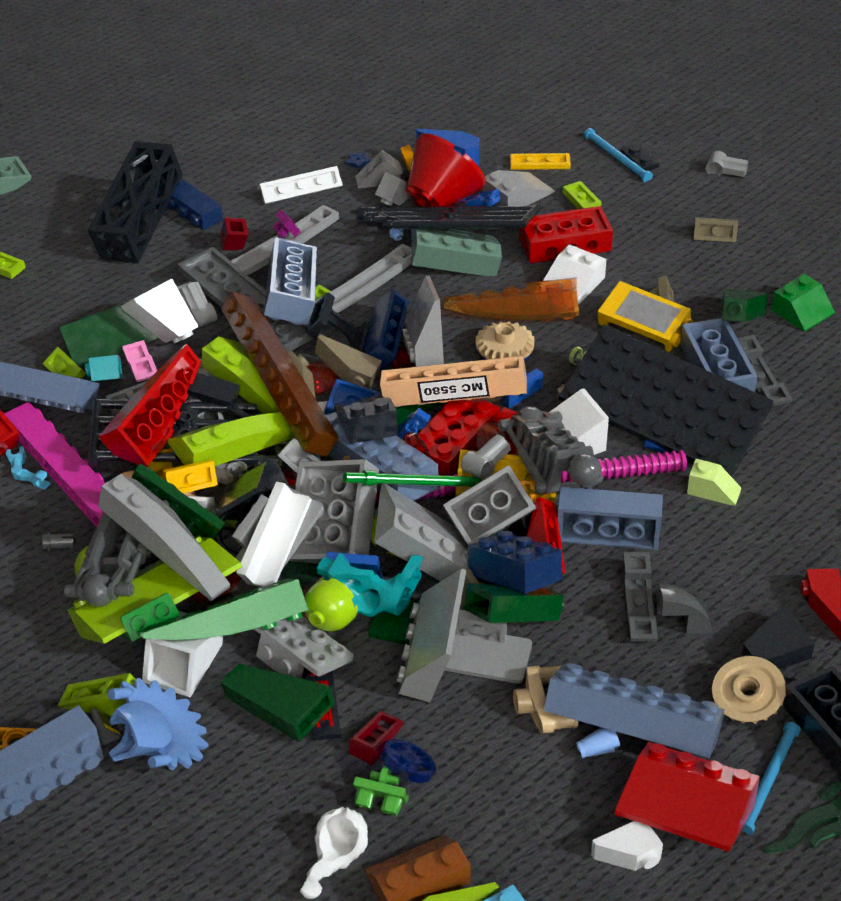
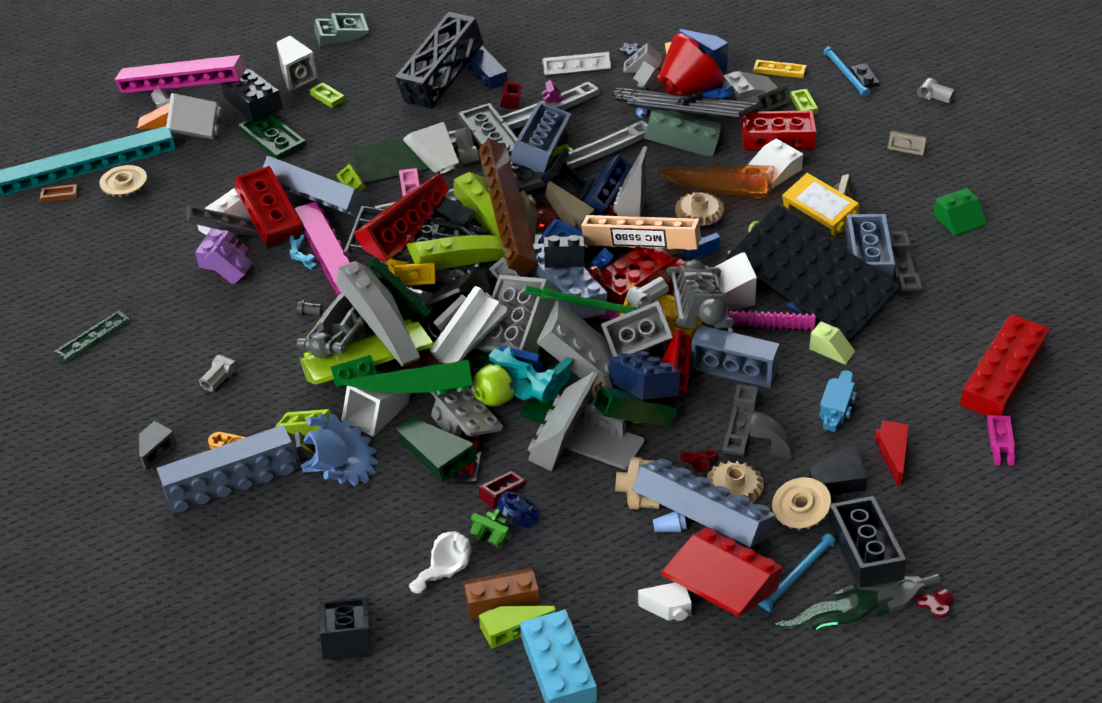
camera: 15 degrees right, 0 degrees up
(104, 368) = (379, 184): teal brick -> none
(546, 197) = (771, 98): none -> dark grey slope
(607, 655) = (699, 460): none -> dark red piece
(659, 670) = (738, 479): none -> tan gear
(743, 305) = (904, 206): dark green slope -> none
(743, 553) = (837, 401): none -> dark azure hinge

